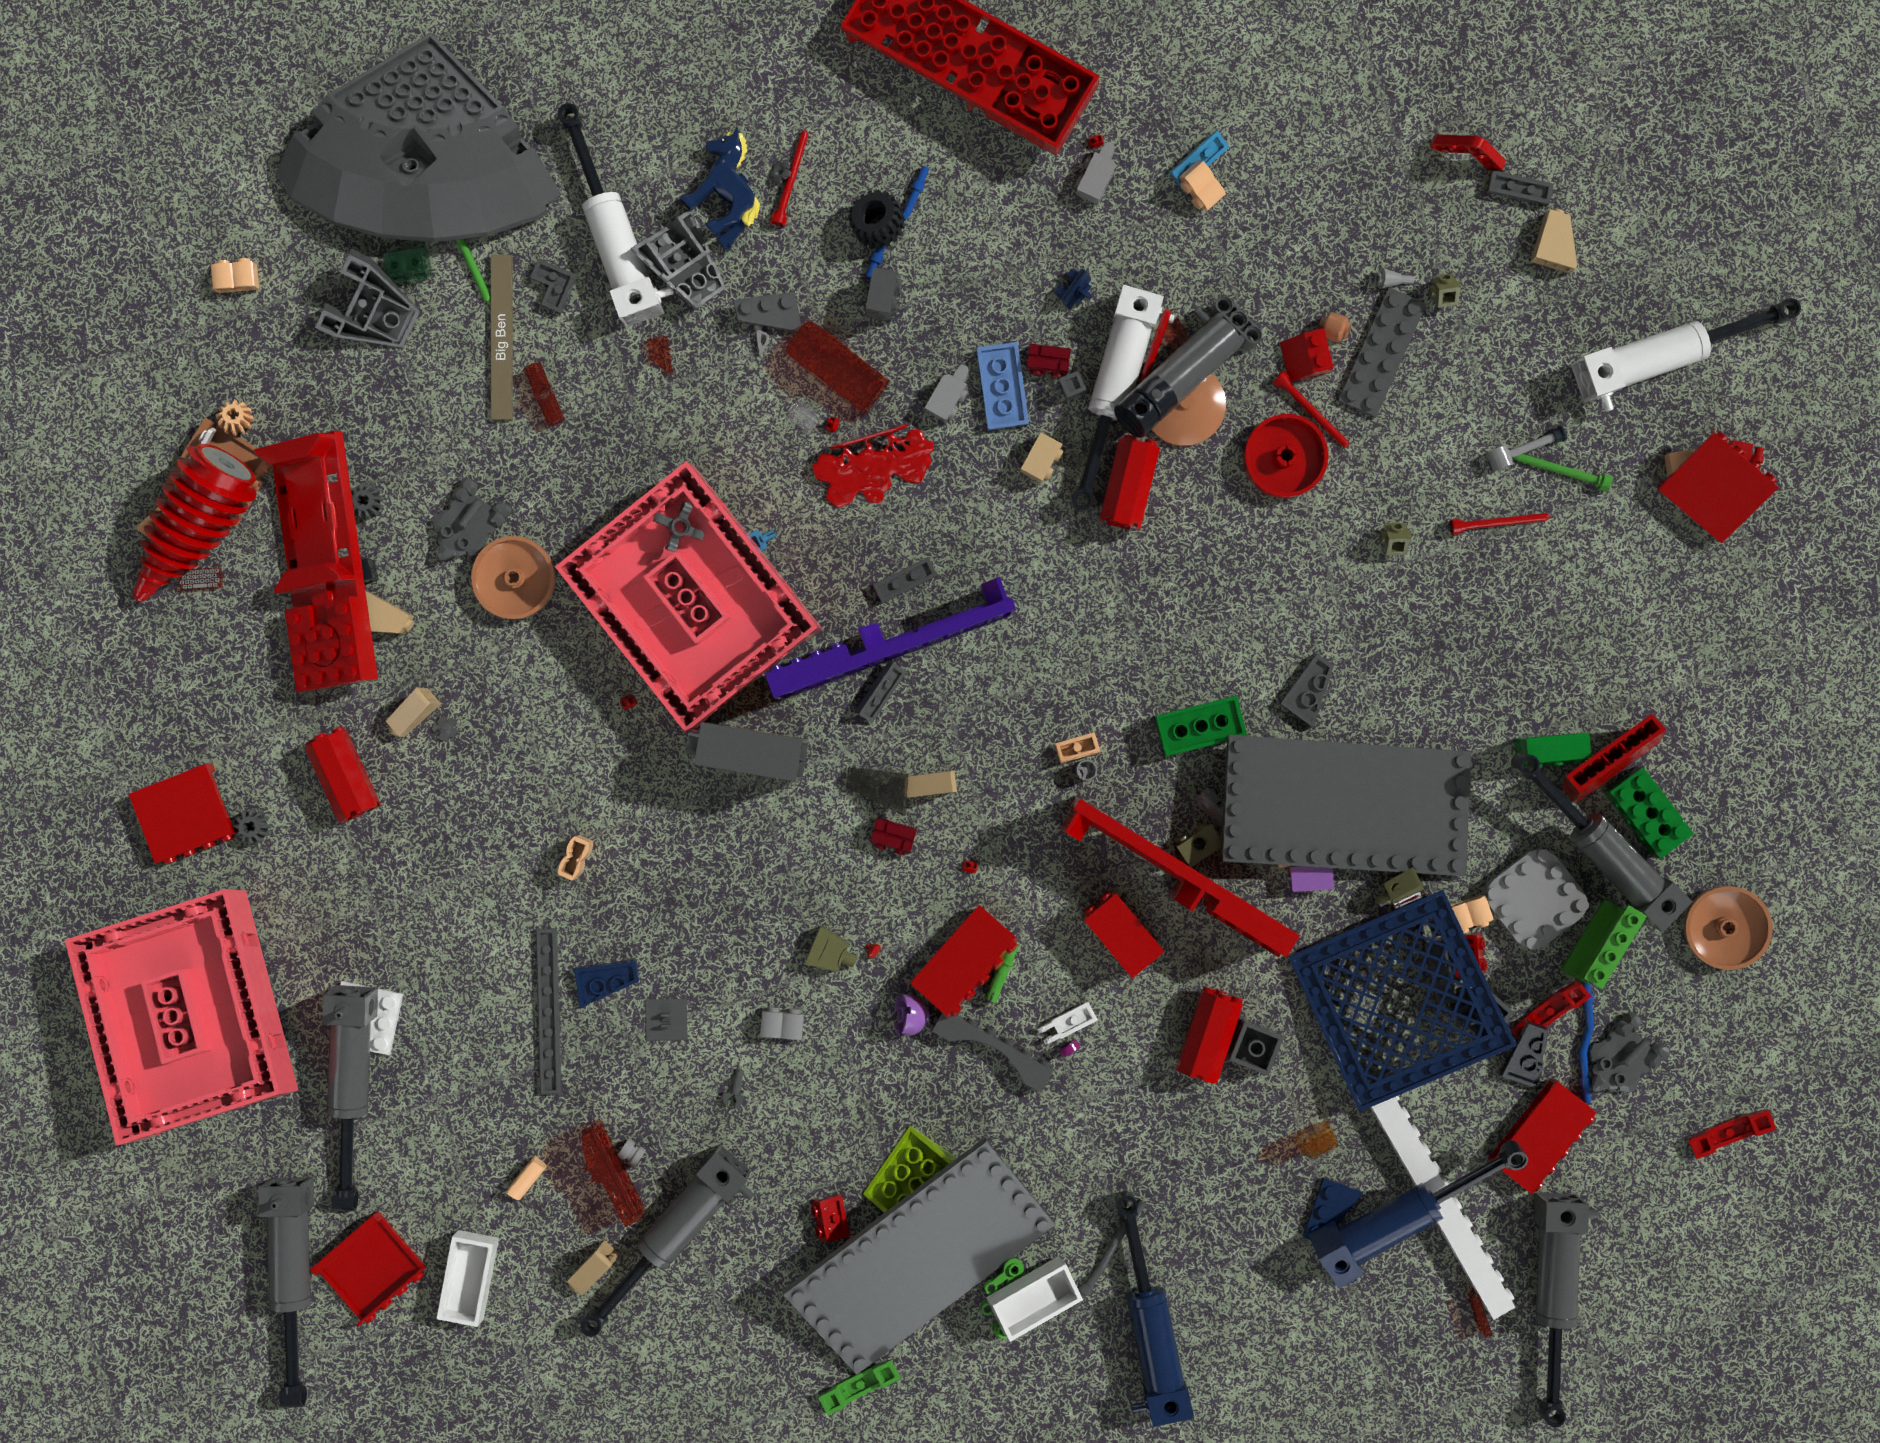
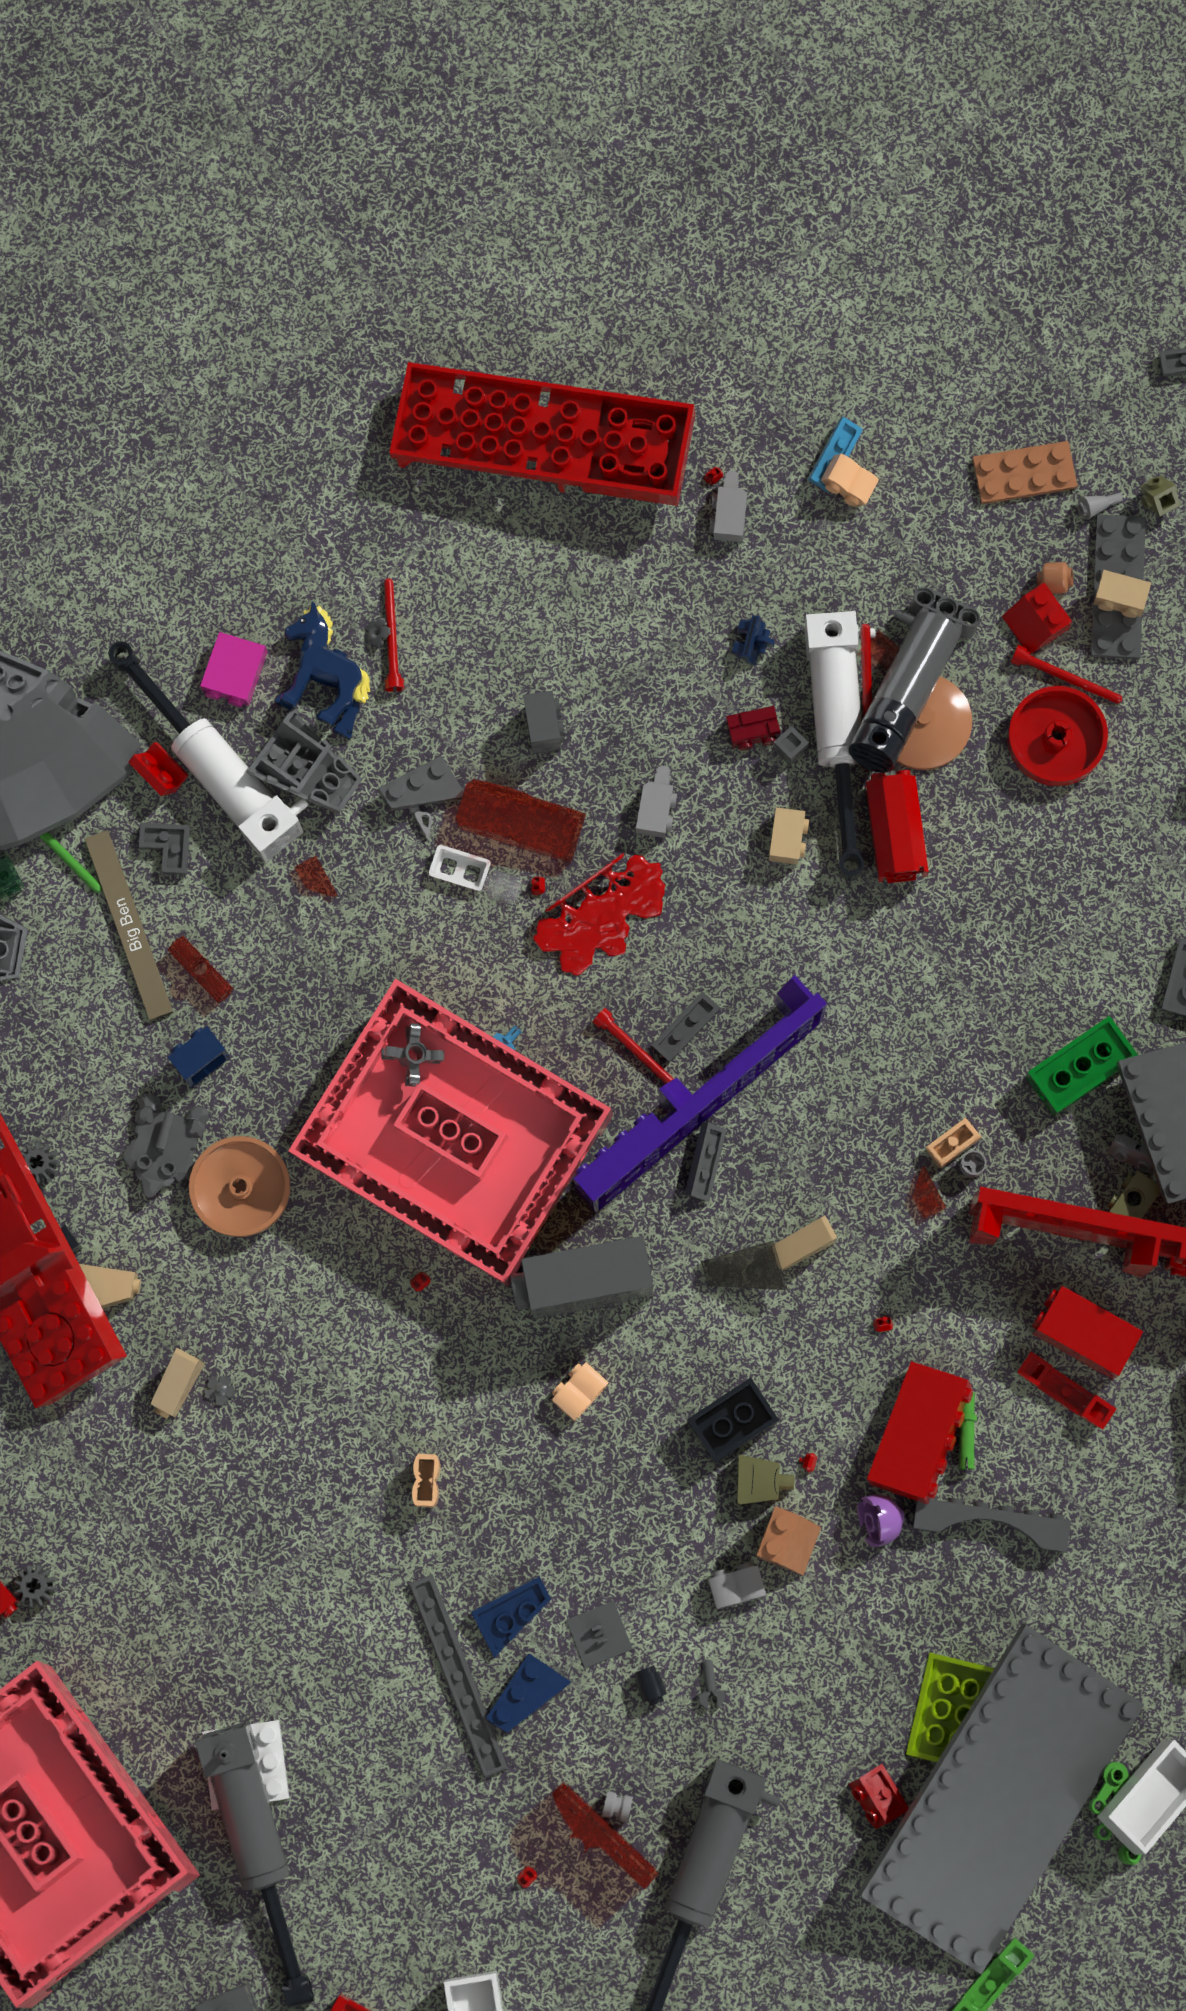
camera: 20 degrees left, 10 degrees down
(342, 774) = (121, 1484): red brick -> none
(516, 463) = (198, 1056): none -> dark blue piece
(526, 1178) = (504, 1884): light nougat brick -> none
(546, 1178) = (526, 1877): none -> red rock
(567, 221) = (159, 769): none -> red bracket
(593, 1044) = (526, 1692): none -> dark blue wing
(593, 1268) = (622, 1963): tan slope -> none
(655, 160) = (233, 669): none -> dark pink brick
(689, 1073) = (650, 1685): none -> black brick
(717, 832) = (579, 1391): none -> light nougat brick
(781, 382) = (463, 860): none -> white piece
(825, 899) = (732, 1420): none -> black brick
(832, 1005) = (788, 1540): none -> nougat slope
(844, 552) = (606, 1021): none -> red piece
(869, 207) = (513, 658): black tyre -> none
(893, 836) = (782, 1320): dark red brick -> none
(917, 187) = (519, 686): blue bar -> none
(1002, 386) = (713, 774): medium blue plate -> none
(1041, 780) = (927, 1196): none -> clear red tile
(1069, 1022) = (1067, 1460): white hinge -> none
(1069, 1048) = (1078, 1489): magenta tile -> none
(1089, 970) = (1066, 1391): none -> red slope
(1345, 231) = (1024, 472): none -> nougat plate
(1382, 360) = (1122, 594): none -> tan brick
(1470, 144) = (1122, 333): red beam -> none

